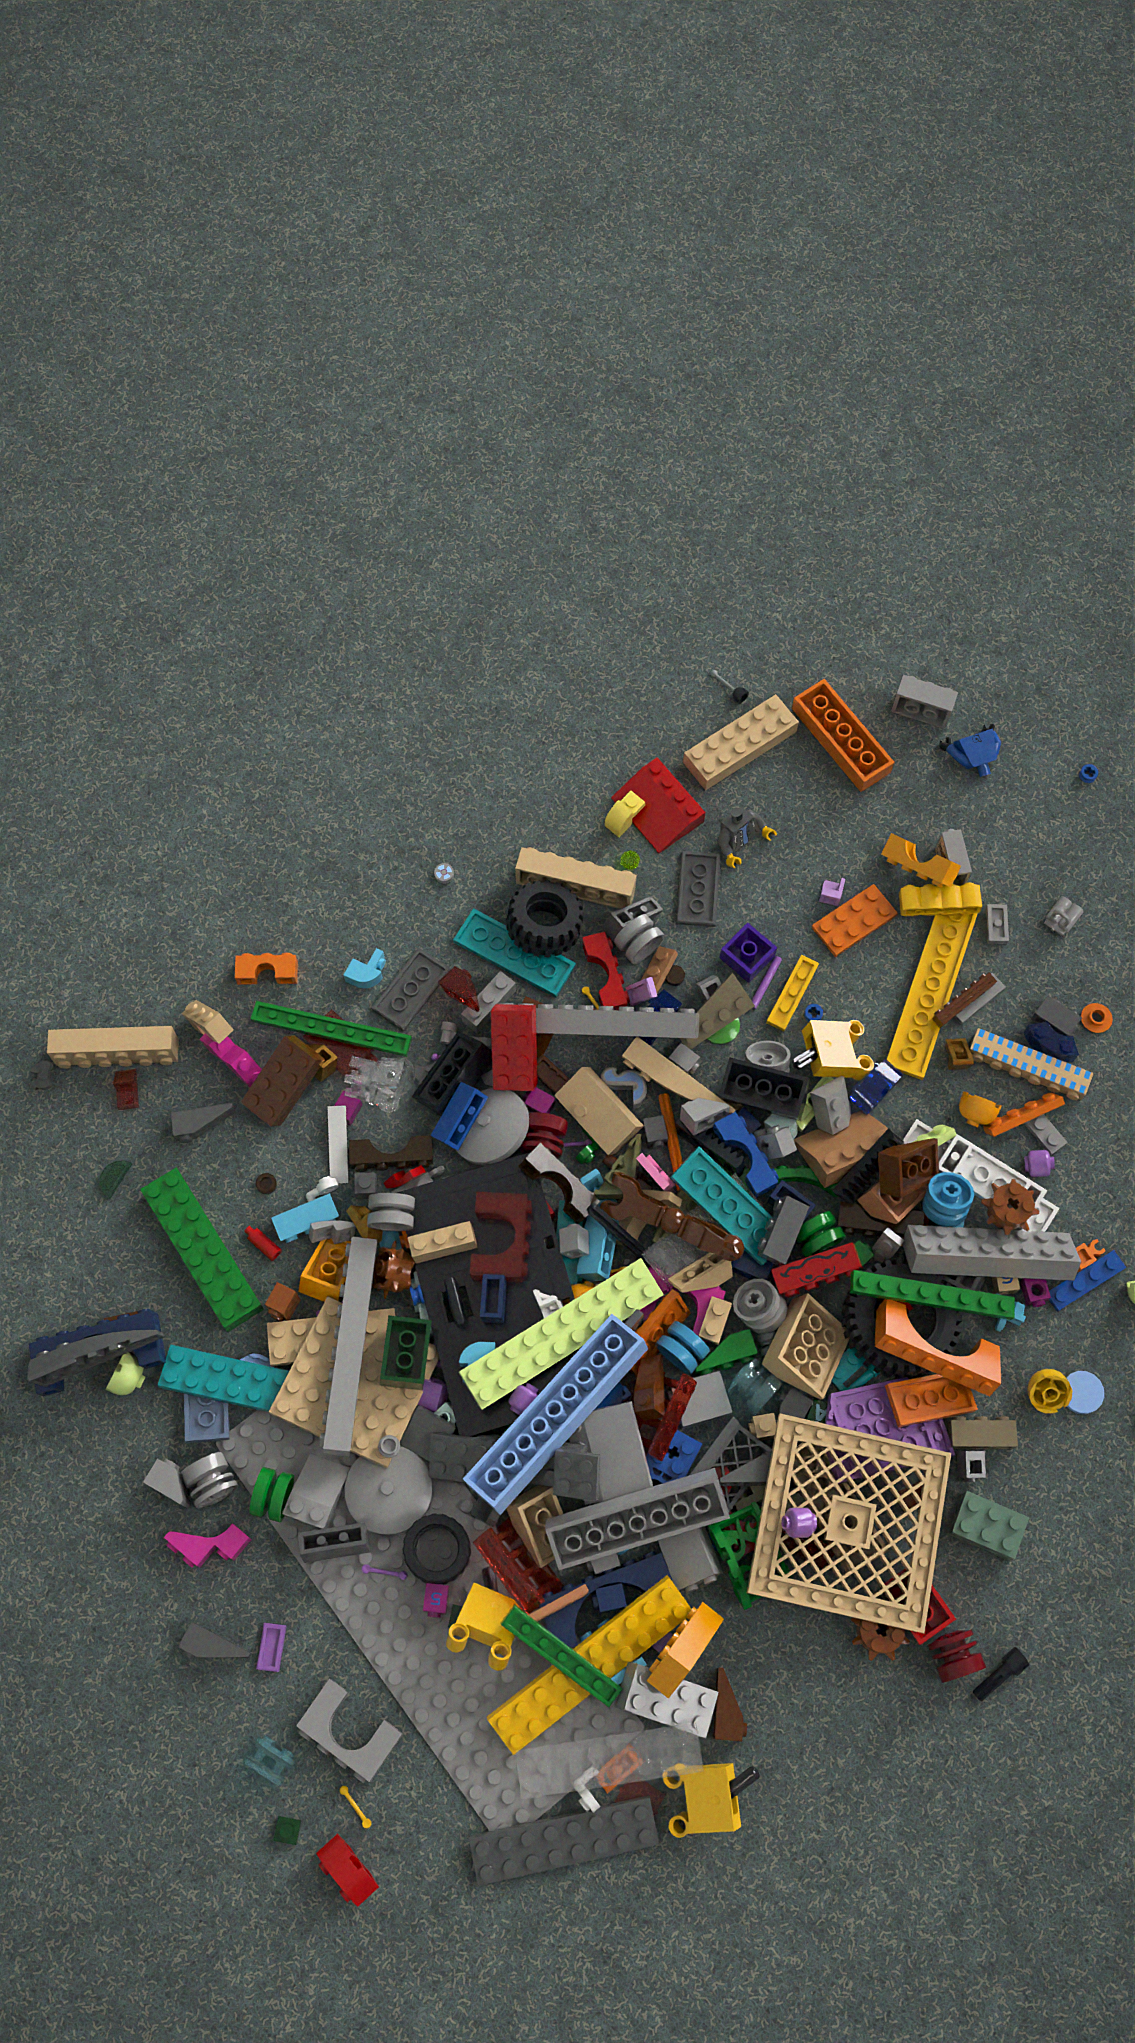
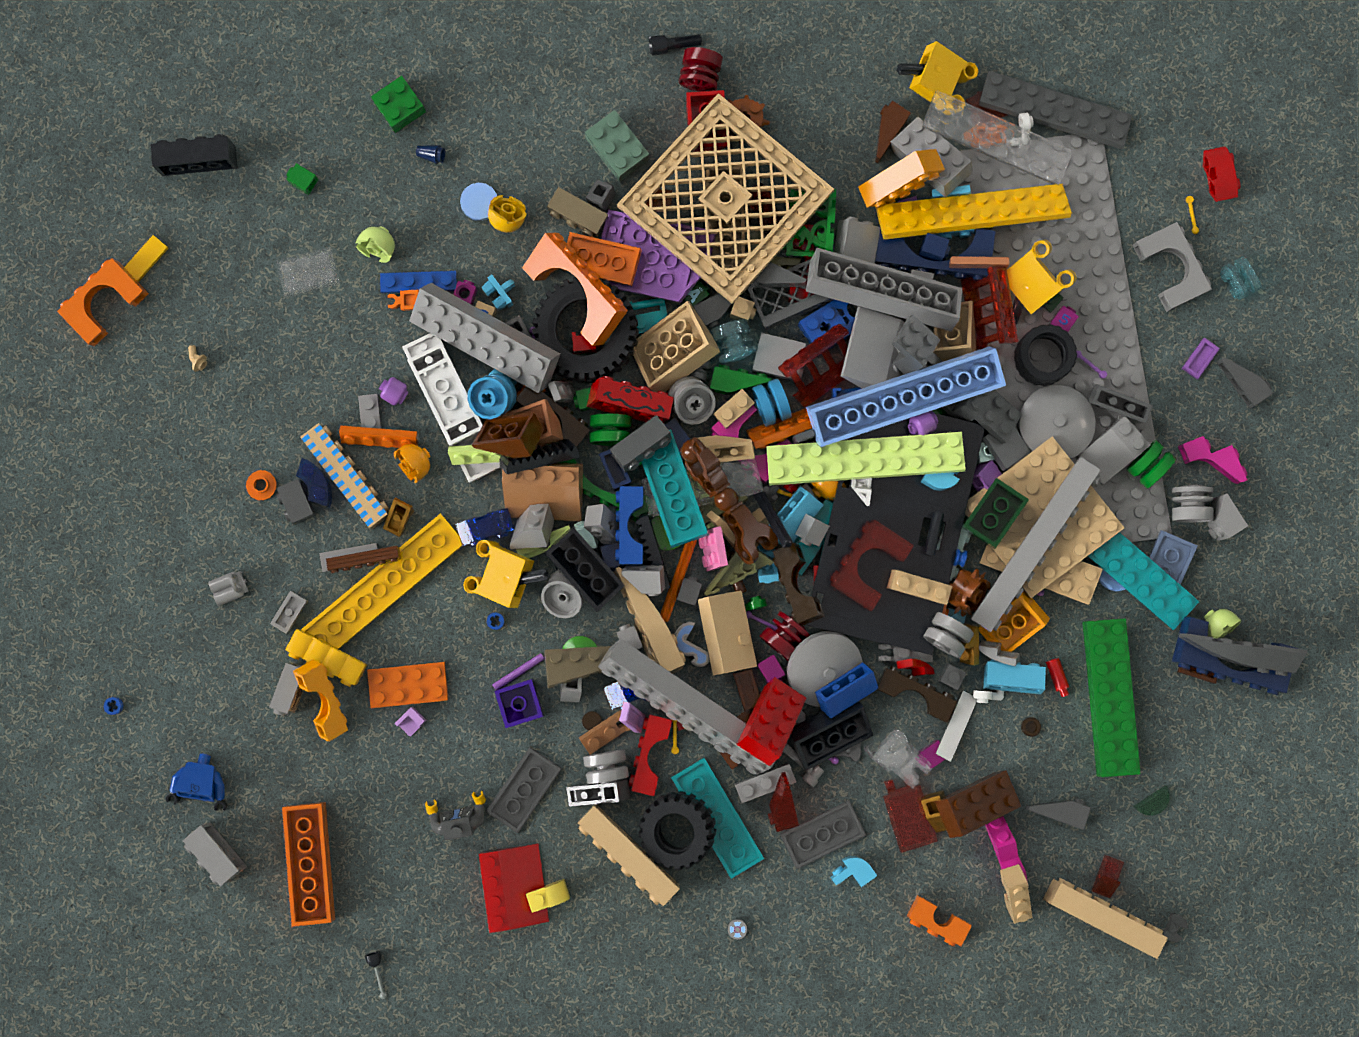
camera: 155 degrees left, 15 degrees up
(282, 1302) = (1069, 614): dark orange brick -> none
(287, 1830) = (1249, 225): dark green plate -> none
(331, 1028) = (912, 832): green plate -> none
(389, 1446) = (1044, 448): light grey plate -> none
(493, 1298) = (905, 515): dark blue piece -> none
(561, 1655) = (996, 224): green tile -> none
(630, 860) = (567, 850): clear neon green plate -> none
(649, 1389) = (817, 382): reddish brown slope -> none
(740, 742) = (402, 909): tan brick -> none
(792, 993) = (502, 648): yellow plate -> none
(799, 1522) = (767, 213): medium lavender head -> none
(932, 1295) = (554, 328): green plate -> none
(1010, 1218) = (456, 367): dark orange brick -> none

